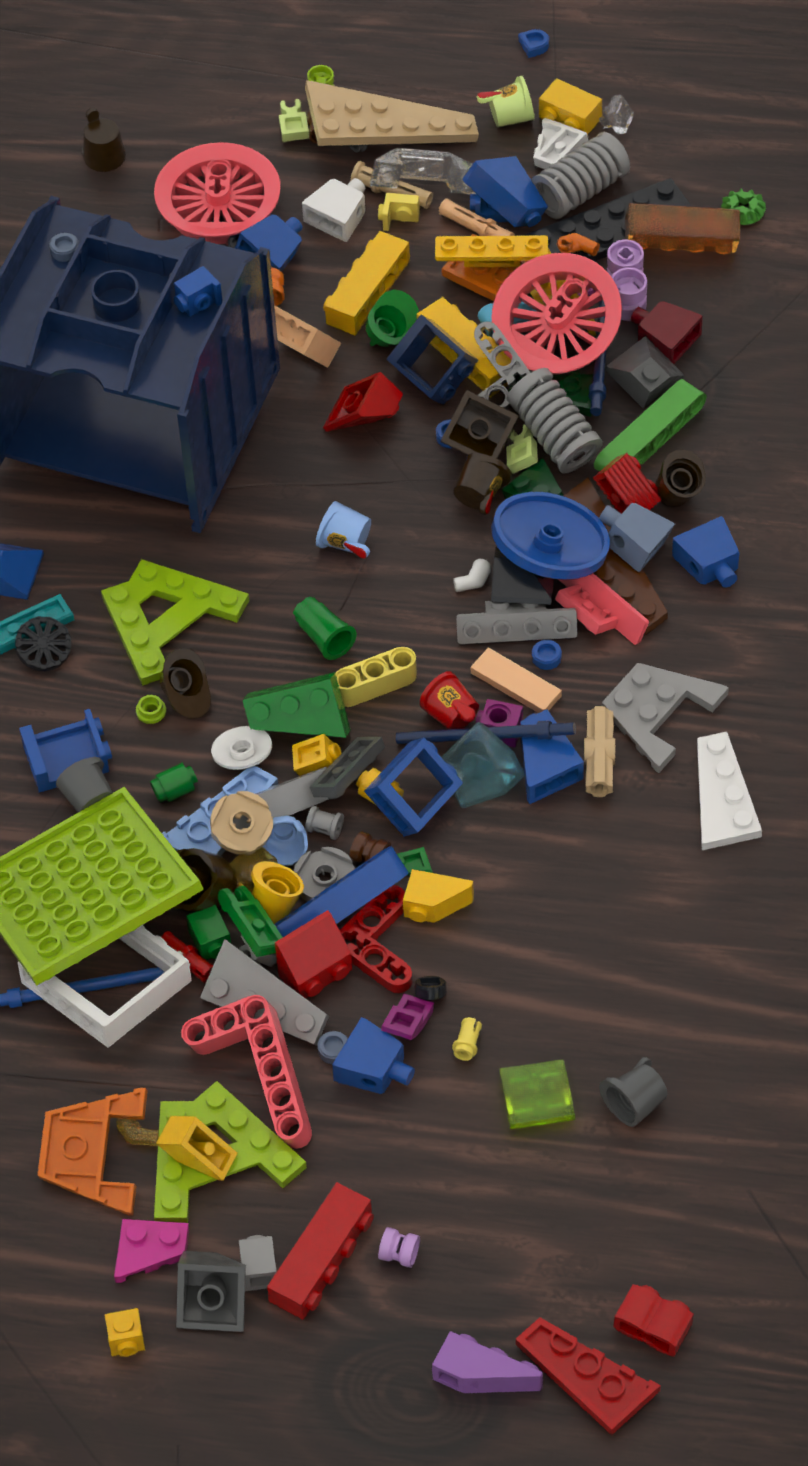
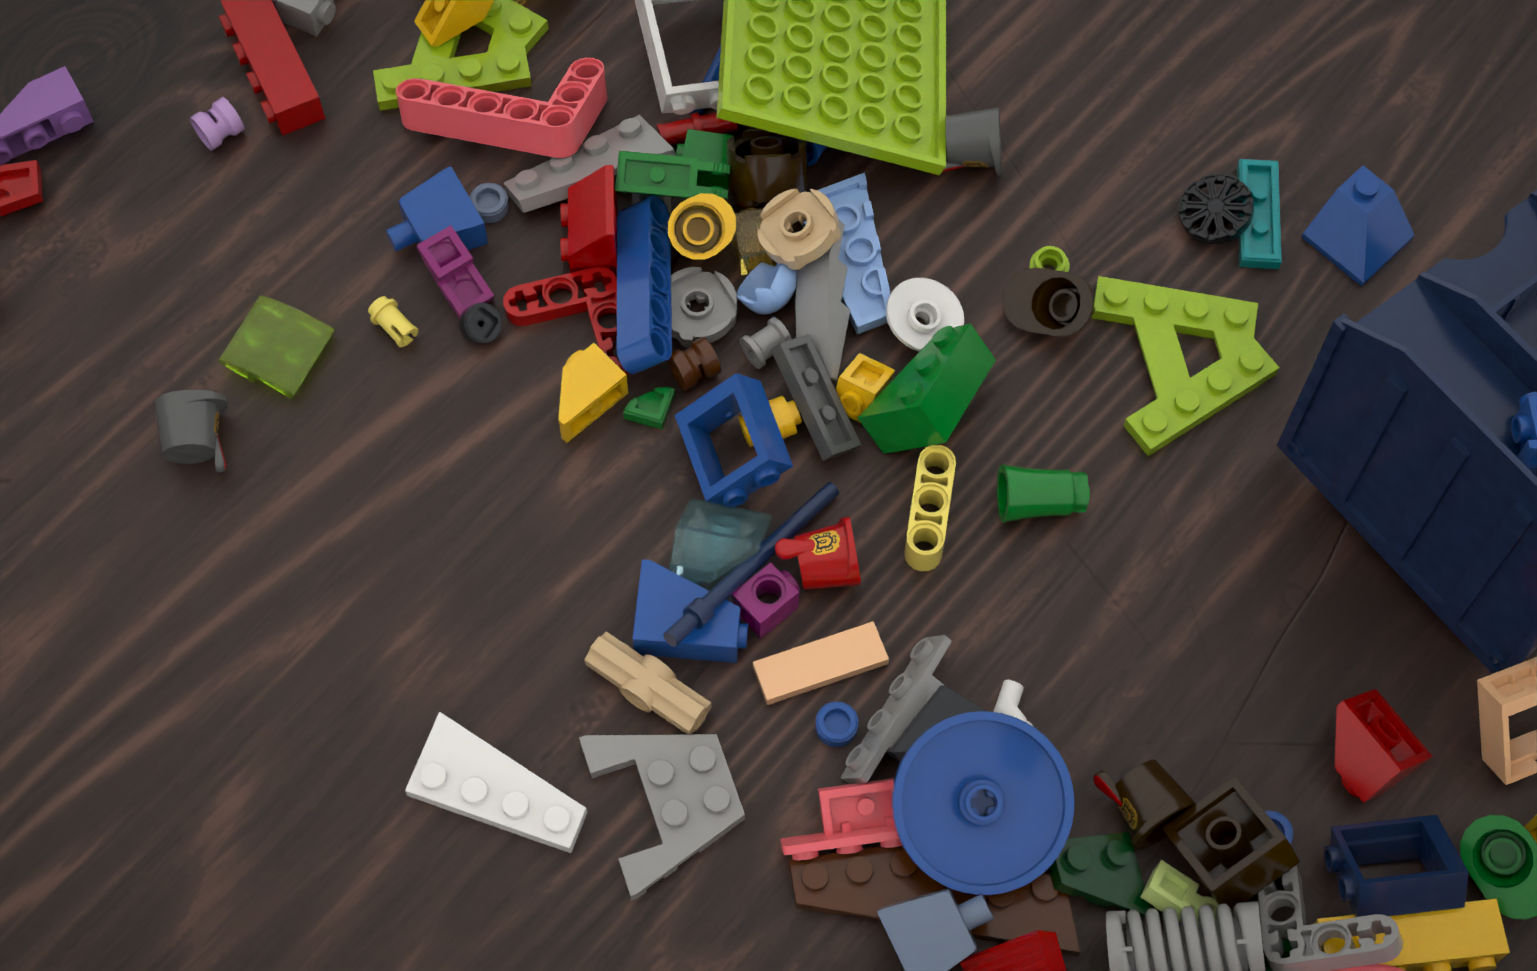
camera: 120 degrees right, 10 degrees up
(61, 747) = (1047, 152): blue panel -> none
(174, 783) = (928, 230): green brick -> none
(344, 530) = (1174, 598): light blue hat -> none

